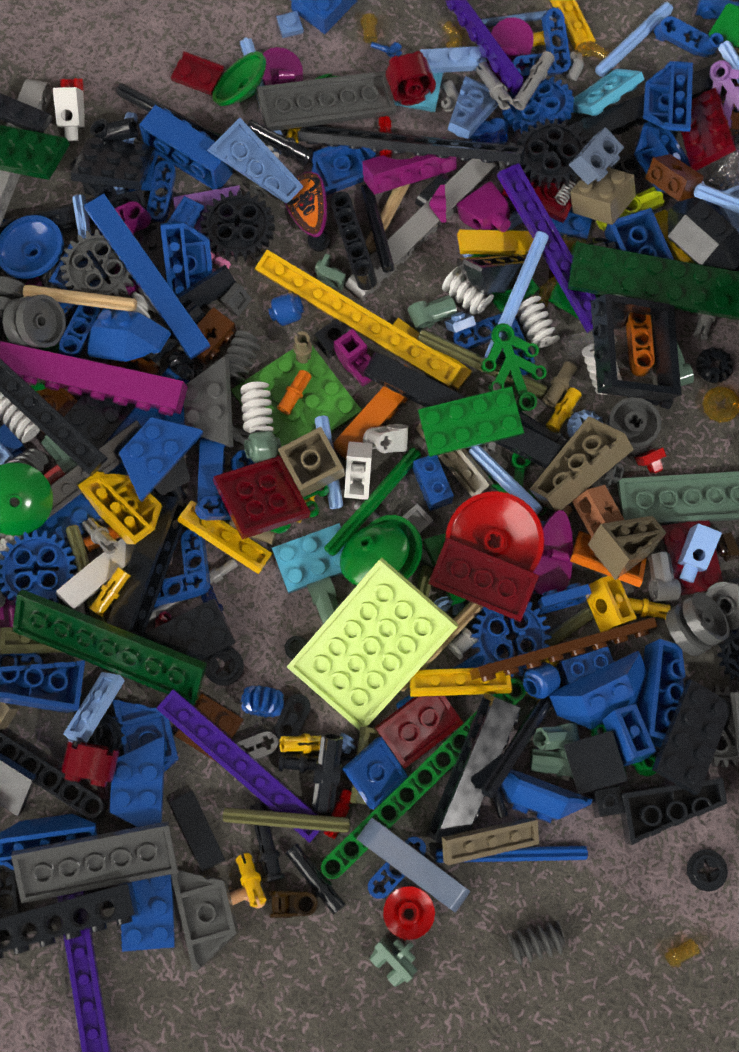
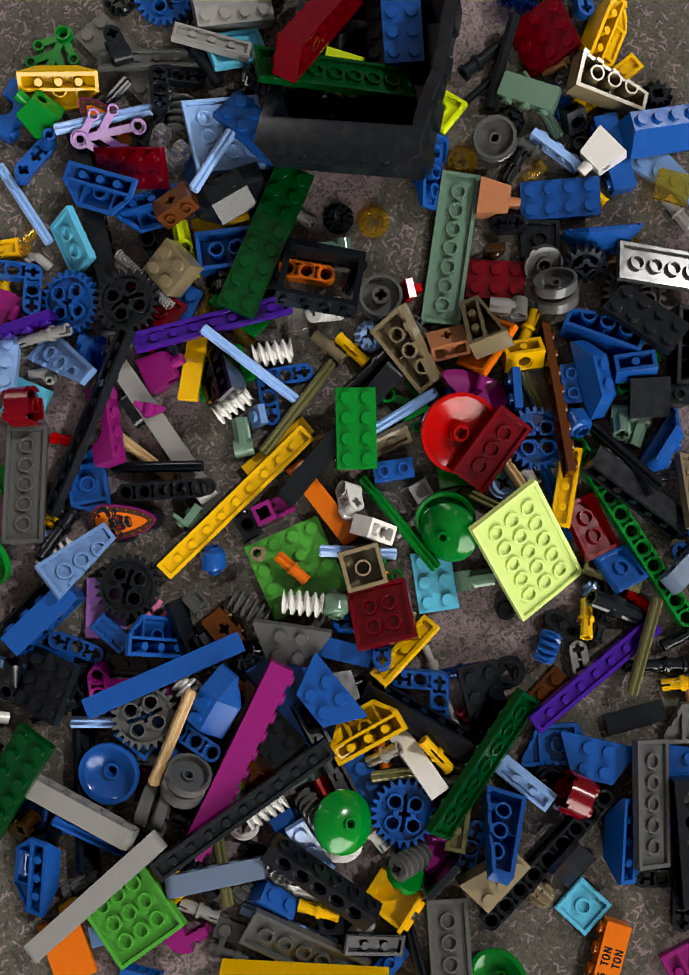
camera: 75 degrees left, 10 degrees up
(513, 363) = (307, 381): green plant -> none
(537, 74) = (43, 295): light grey pin -> none
(597, 156) = (144, 264): sand blue brick -> none
(703, 542) = (498, 274): light blue torso -> none

